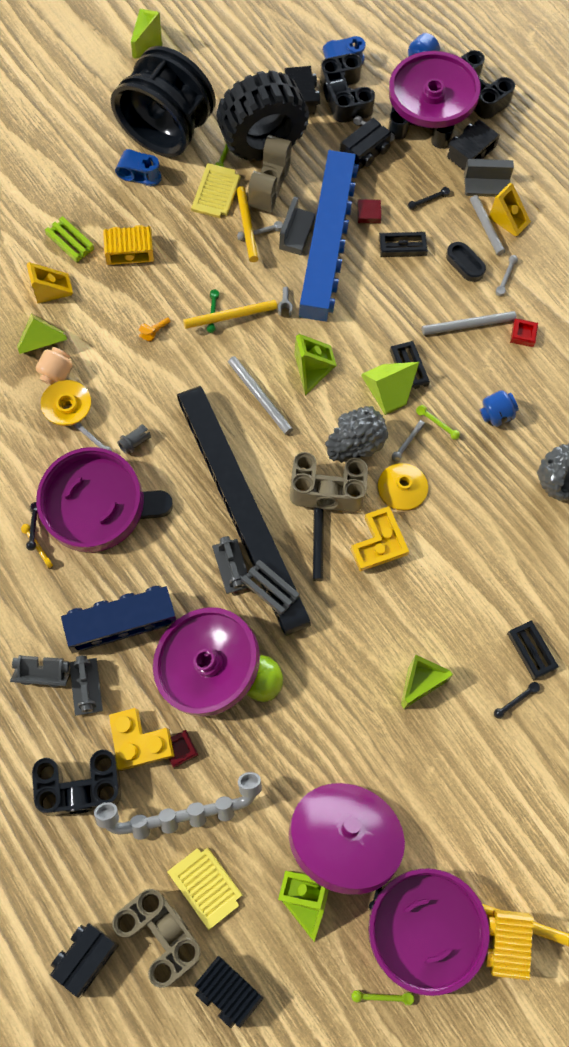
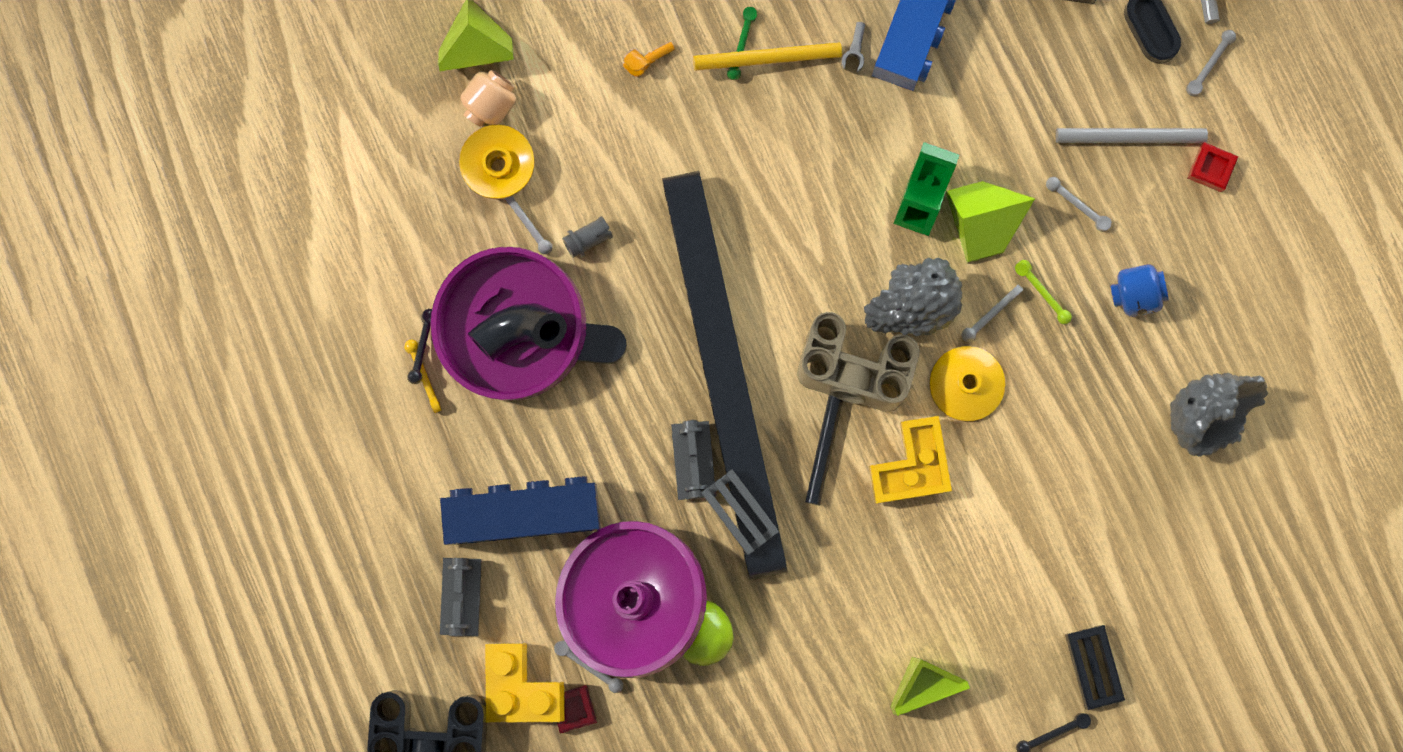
camera: 15 degrees right, 15 degrees up
(27, 671) = (413, 571): dark grey hinge -> none
(96, 496) = (517, 325): none -> black cylinder
(164, 710) = (615, 684): none -> light grey hinge
(260, 395) = (786, 198): light grey bar -> none
(313, 361) = (878, 159): lime slope -> none
(348, 369) = (926, 189): none -> green brick
(416, 358) = (1032, 157): black tile -> none
(464, 376) = (1102, 223): none -> light grey hinge

